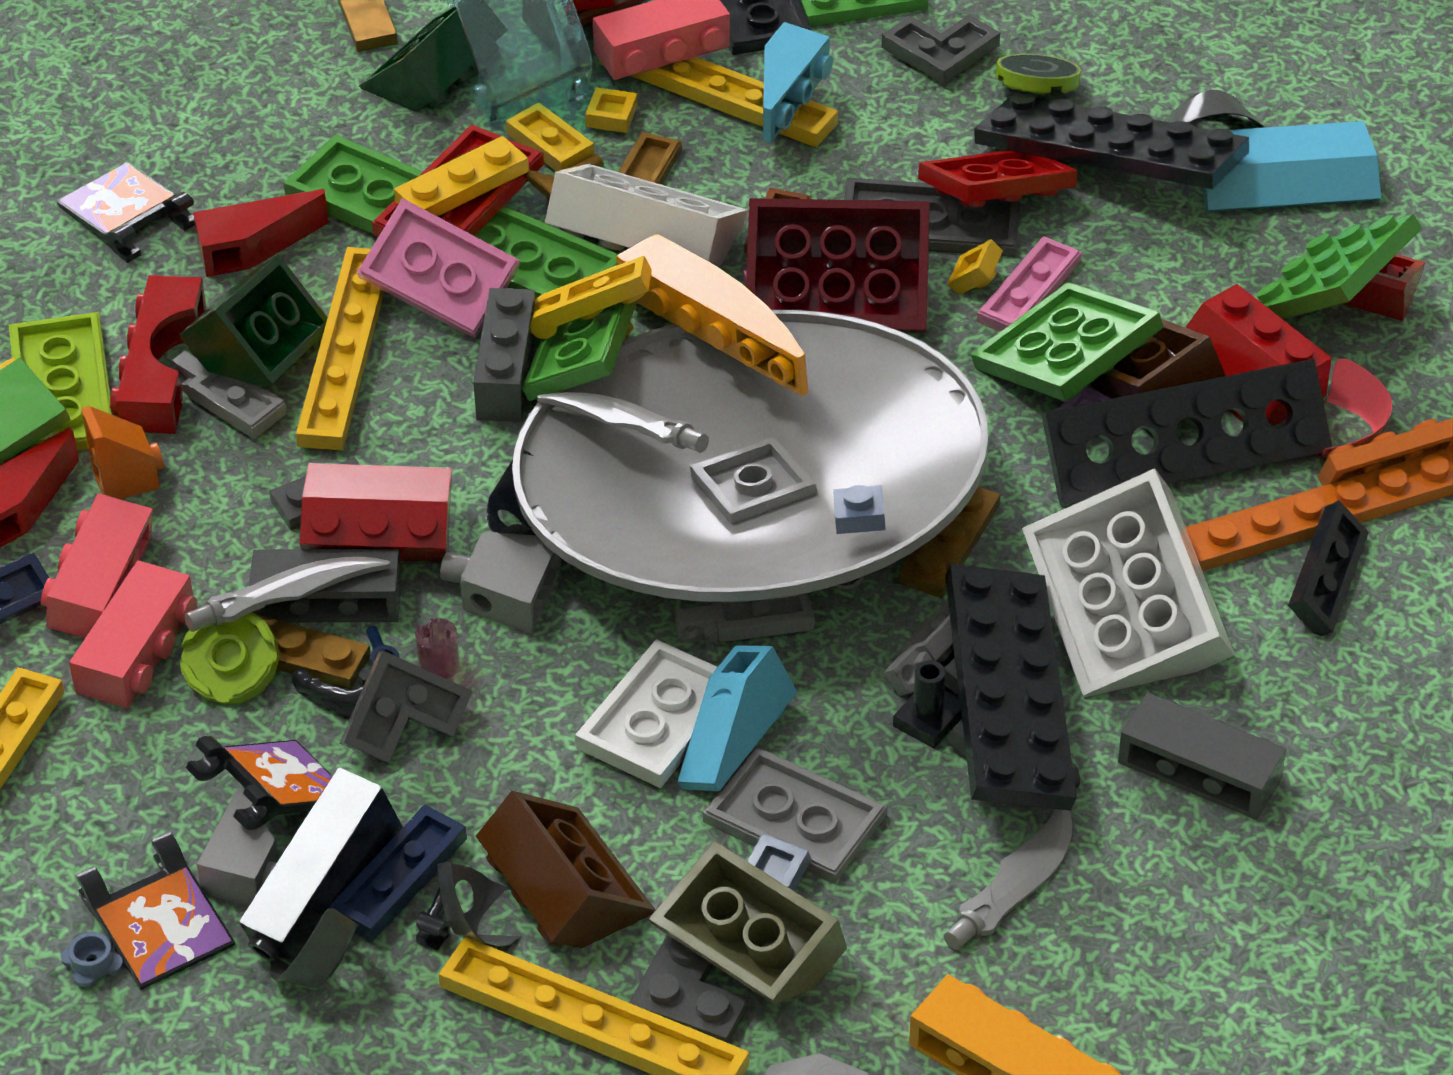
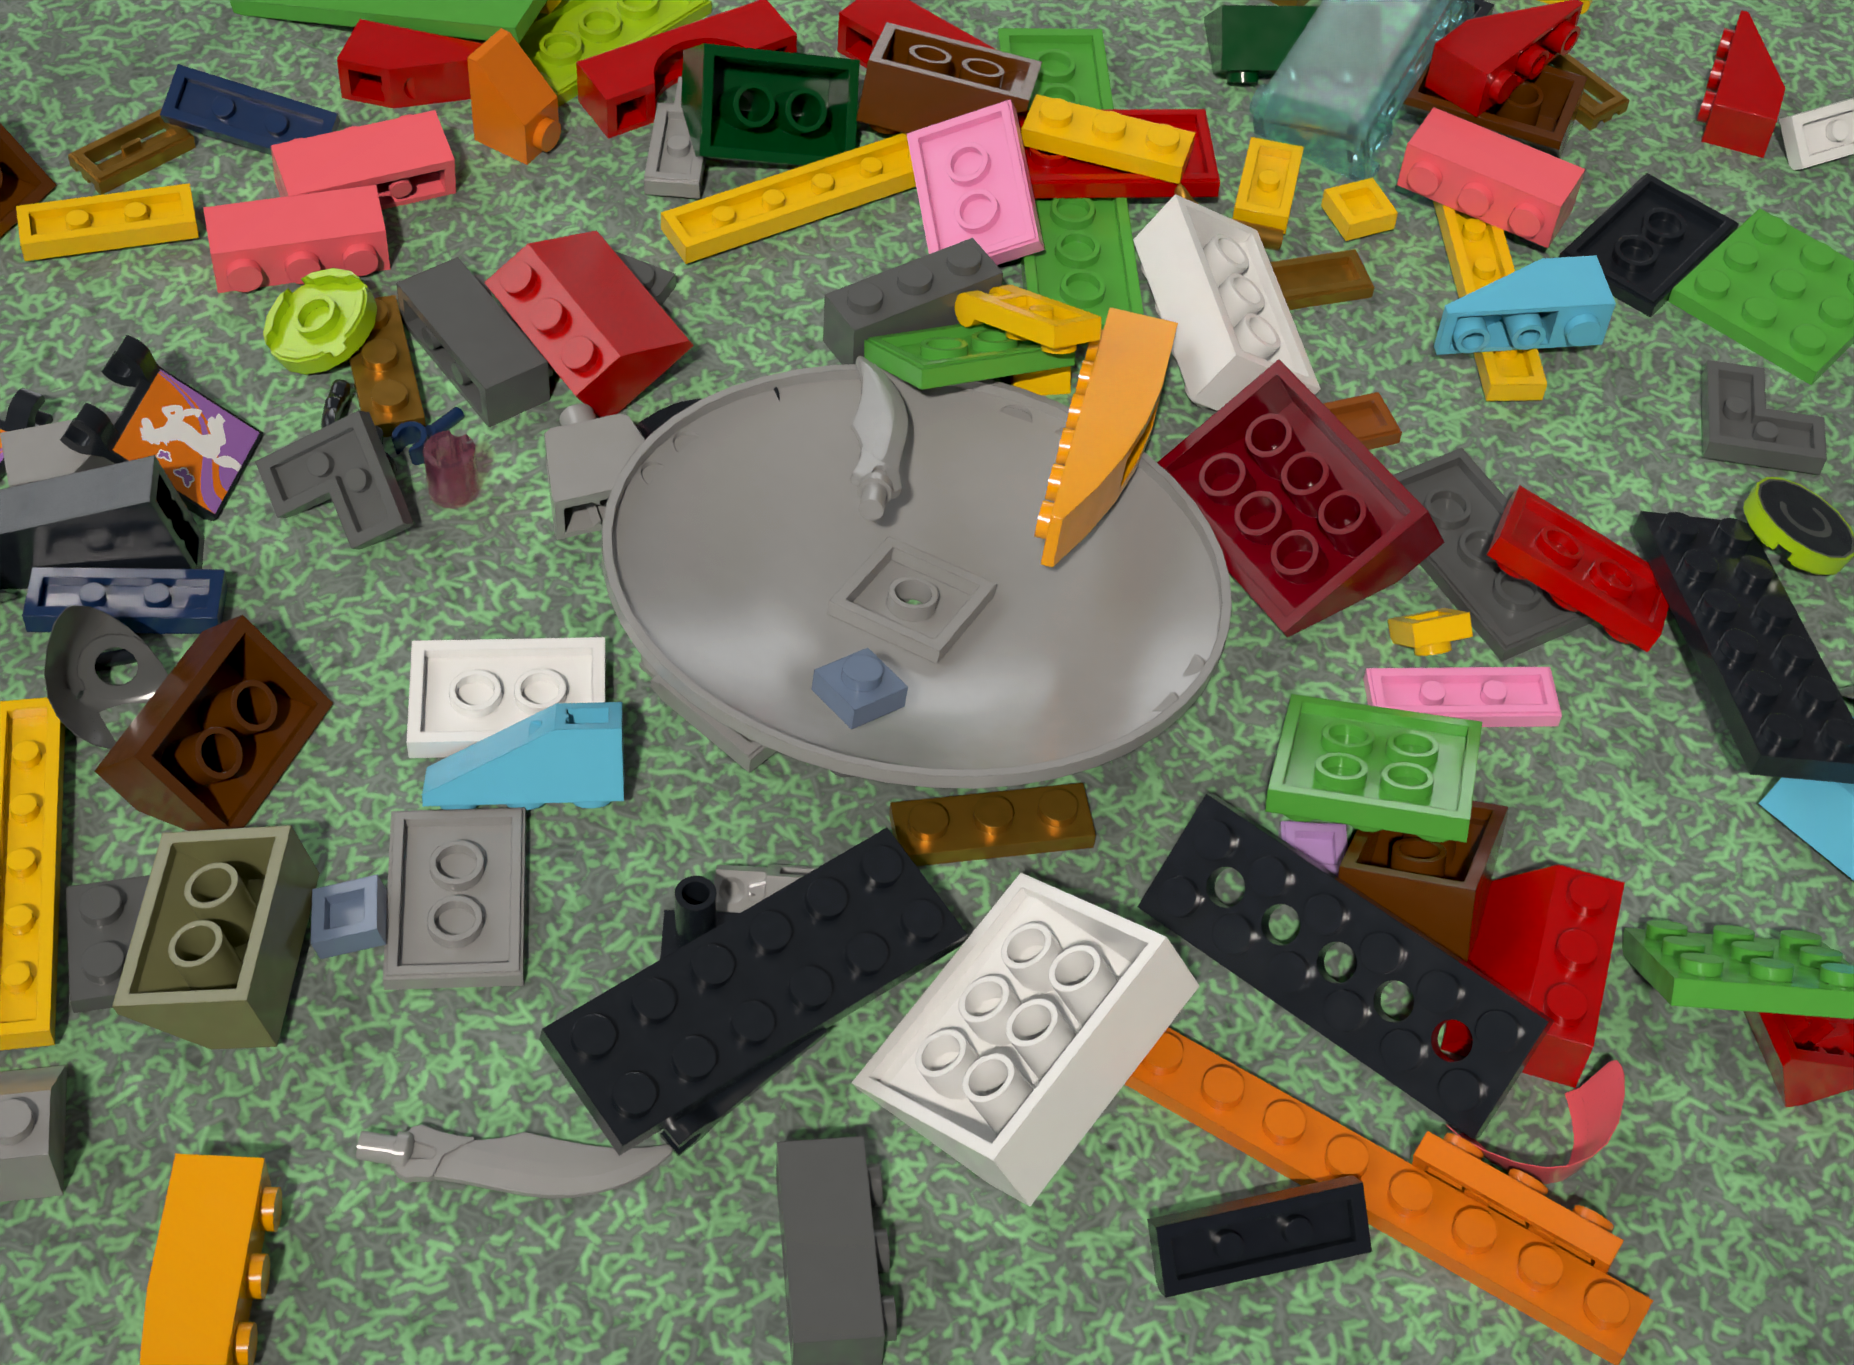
camera: 50 degrees right, 5 degrees up
(285, 586) = (410, 301): light grey sword -> none
(325, 230) = (930, 78): none -> reddish brown slope

